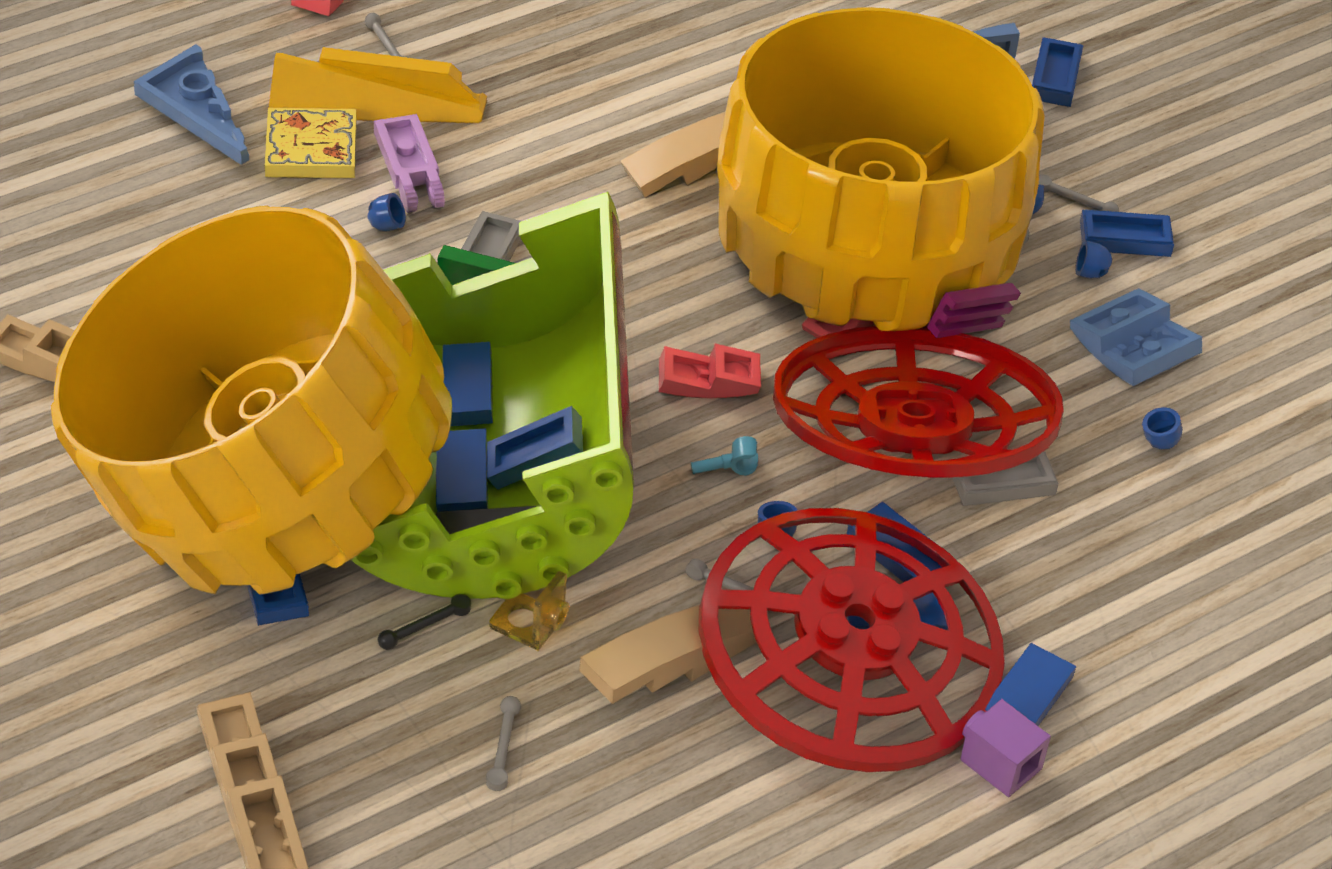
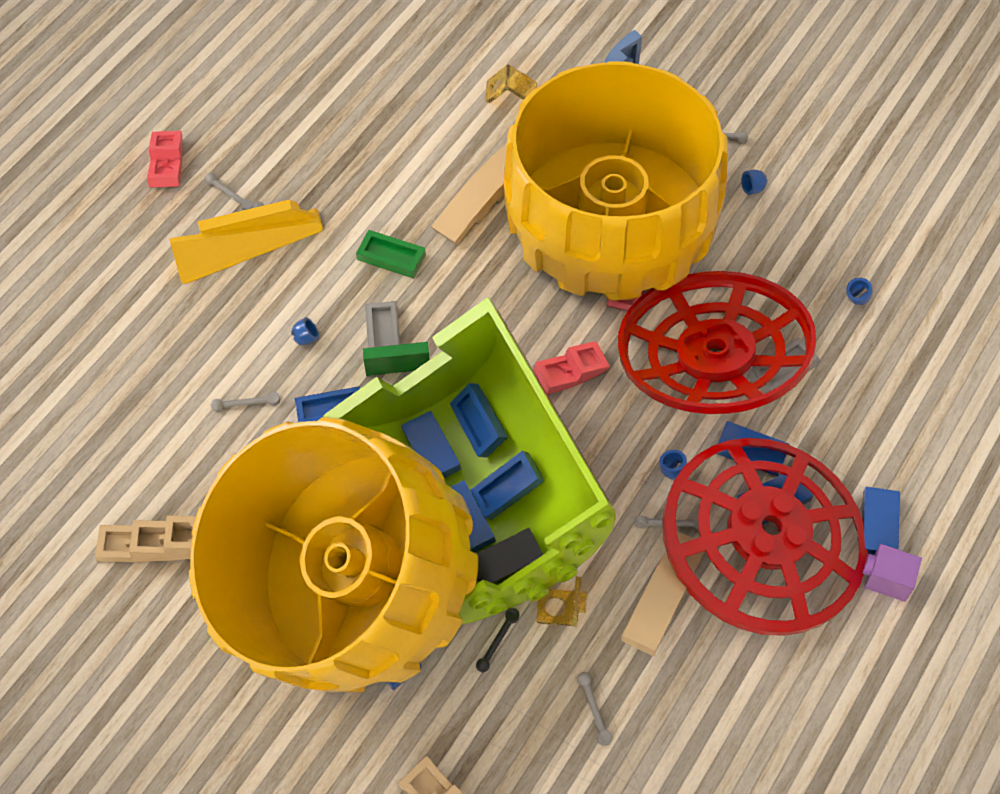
camera: 20 degrees left, 15 degrees up
(190, 97) = (123, 293): medium blue wing -> none
(310, 143) = (224, 295): light yellow tile -> none
(409, 159) = (296, 282): lavender hinge -> none
(543, 370) = (478, 420): none -> blue tile
(550, 173) = (391, 254): none -> green tile
(742, 459) = (626, 426): medium azure hand -> none
(973, 310) = (709, 254): magenta tile -> none
(1057, 71) = (657, 44): blue tile -> none
(1128, 232) = (760, 150): blue tile -> none
(1135, 336) = (806, 227): medium blue slope -> none

